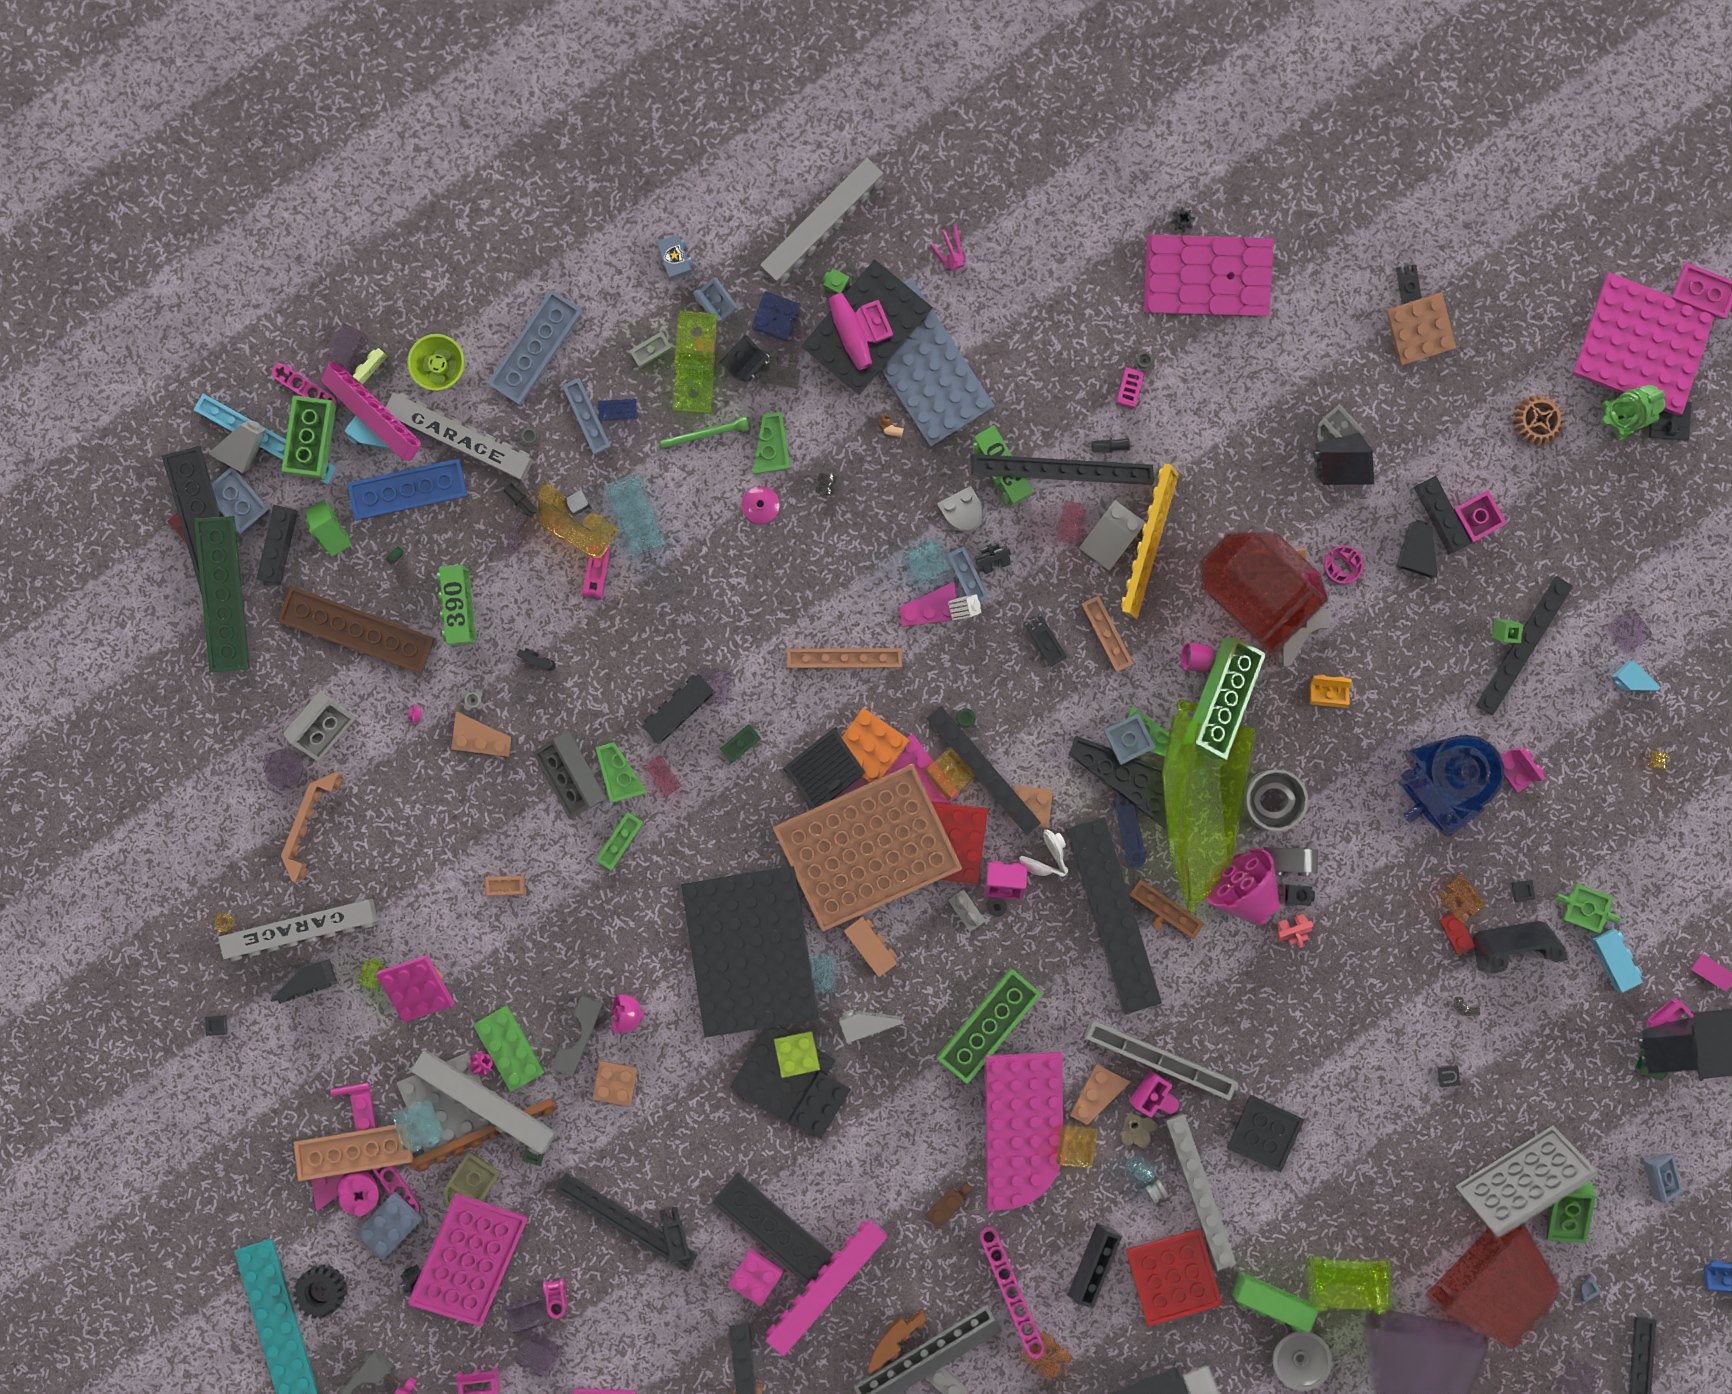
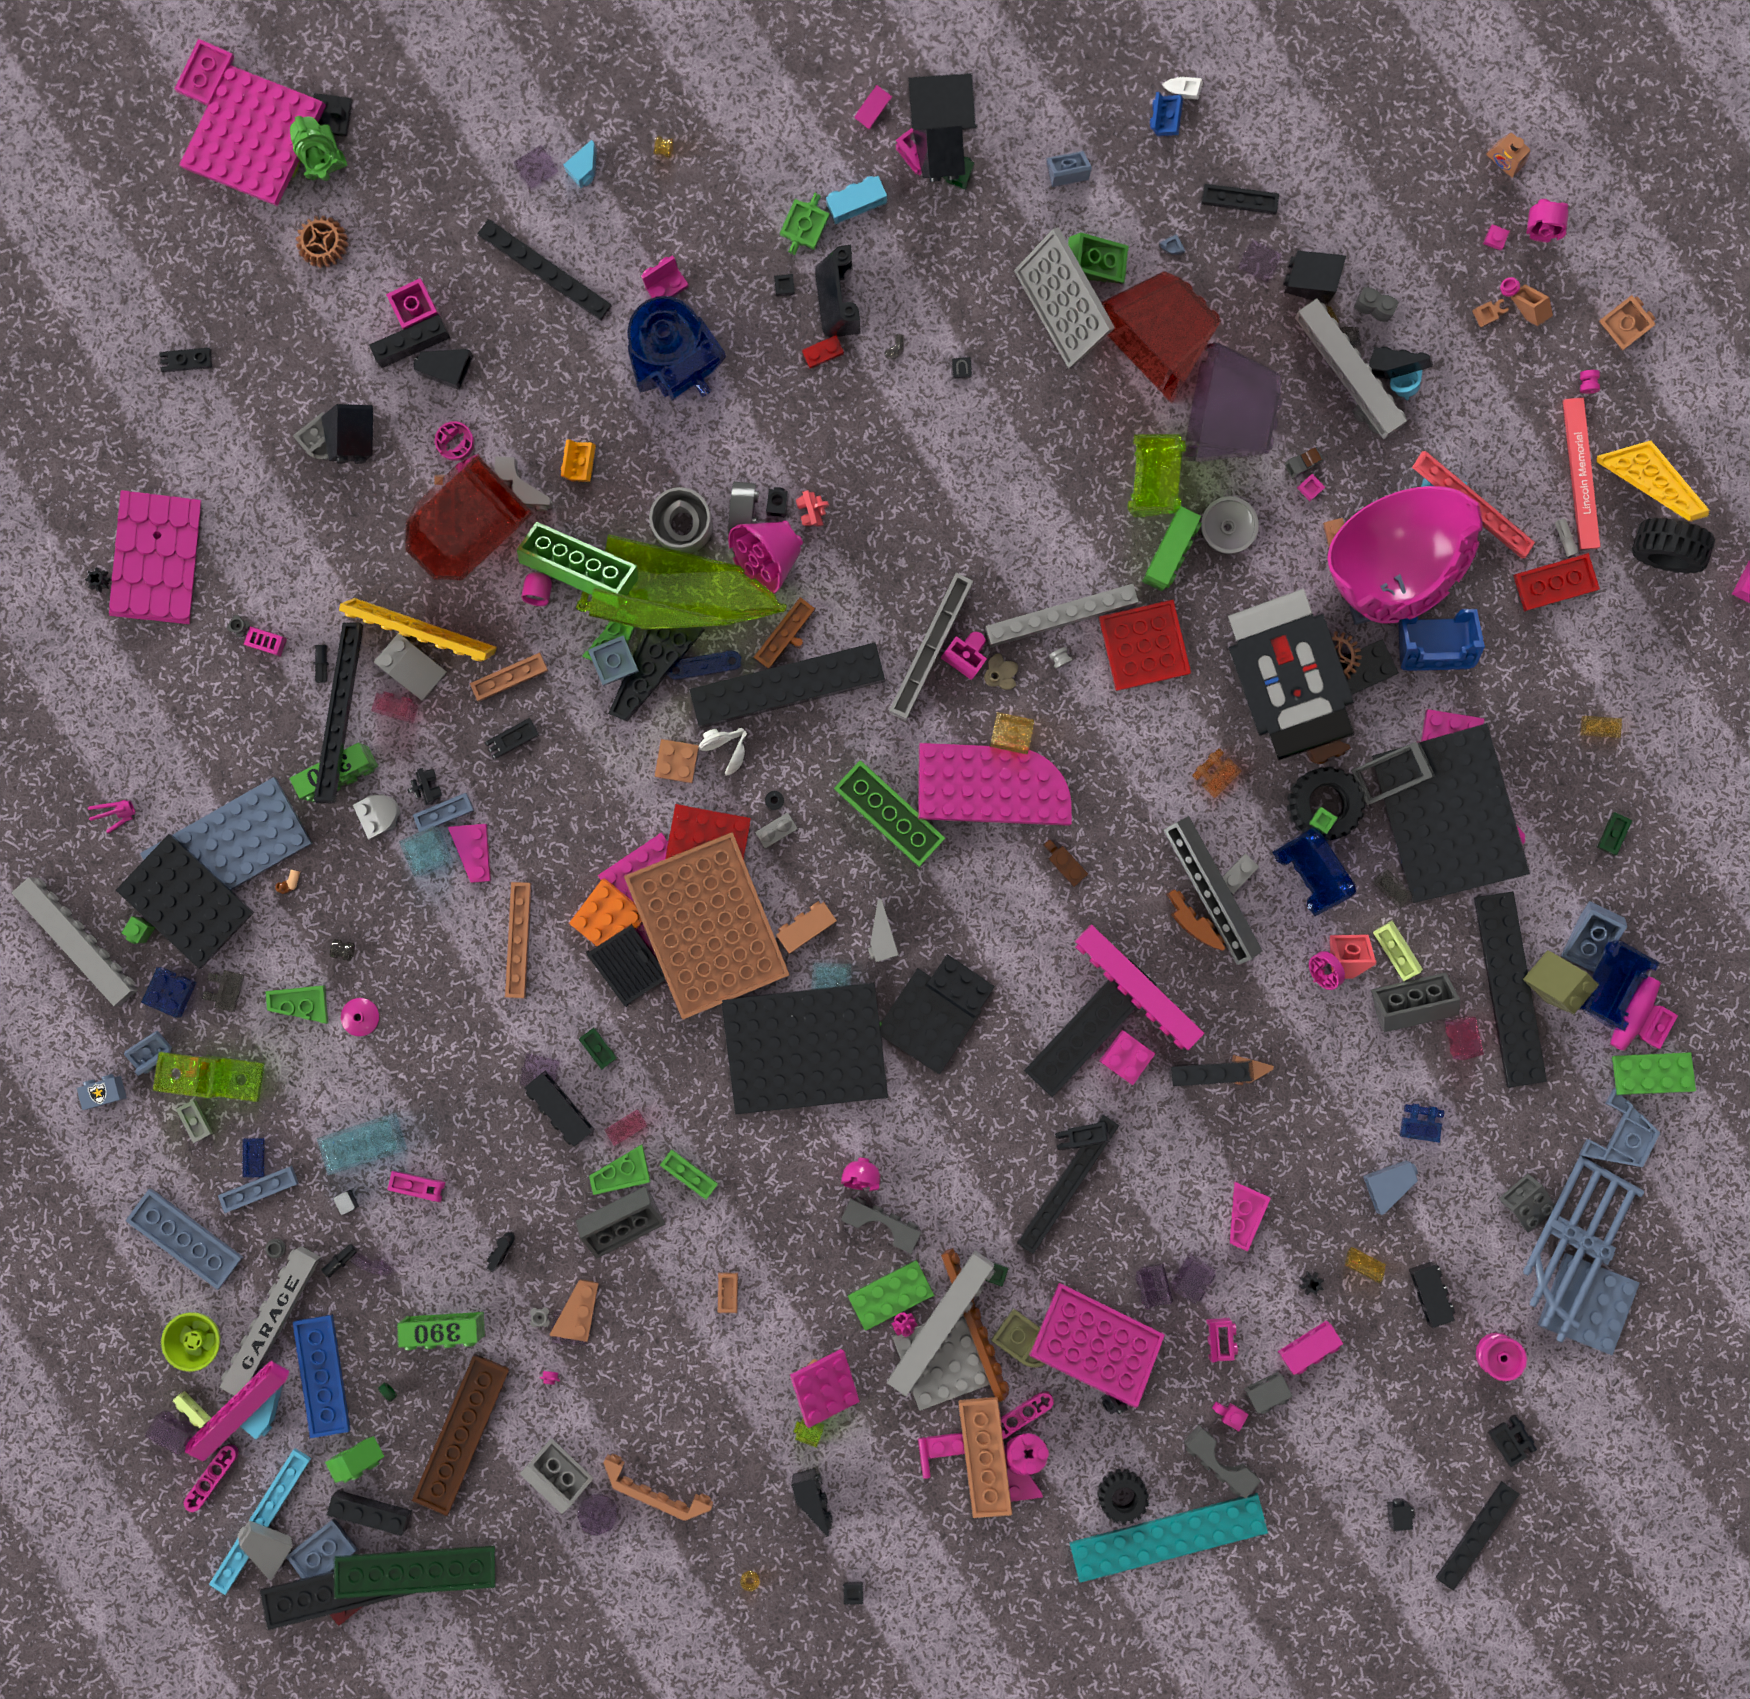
camera: 85 degrees left, 0 degrees up
(297, 929) = (760, 1505): light grey brick -> none
(308, 437) = (259, 1476): bright green brick -> none
(389, 1225) = (1061, 1423): sand blue plate -> none
(417, 1125) = (961, 1391): clear light blue plate -> none
(555, 1293) = (1137, 1258): dark pink piece -> none
(589, 536) = (376, 1193): clear yellow windscreen -> none
(615, 1083) = (930, 1189): nougat plate -> none
(740, 424) = (276, 1033): bright green piece -> none
(744, 359) = (209, 1026): black bracket -> none
(797, 1054) = (909, 1006): lime plate -> none
(858, 328) = (182, 908): dark pink plate -> none
(949, 773) = (638, 840): clear yellow plate -> none
(964, 607) = (472, 817): white brick -> none
(965, 717) = (585, 821): dark green tile -> none
(984, 770) = (638, 806): black plate -> none
(1005, 881) = (747, 790): dark pink brick -> none
(1018, 1299) = (1160, 800): dark pink beam -> none
(1094, 1265) = (1129, 722): black brick -> none
(1097, 1093) = (962, 710): nougat wing -> none
(1140, 1170) = (1039, 672): clear light blue head -> none
(1265, 1133) = (1008, 548): black plate -> none
(1420, 328) = (223, 351): nougat plate -> none
(1466, 896) = (785, 341): clear orange plate -> none
(1507, 631) = (528, 284): bright green brick -> none

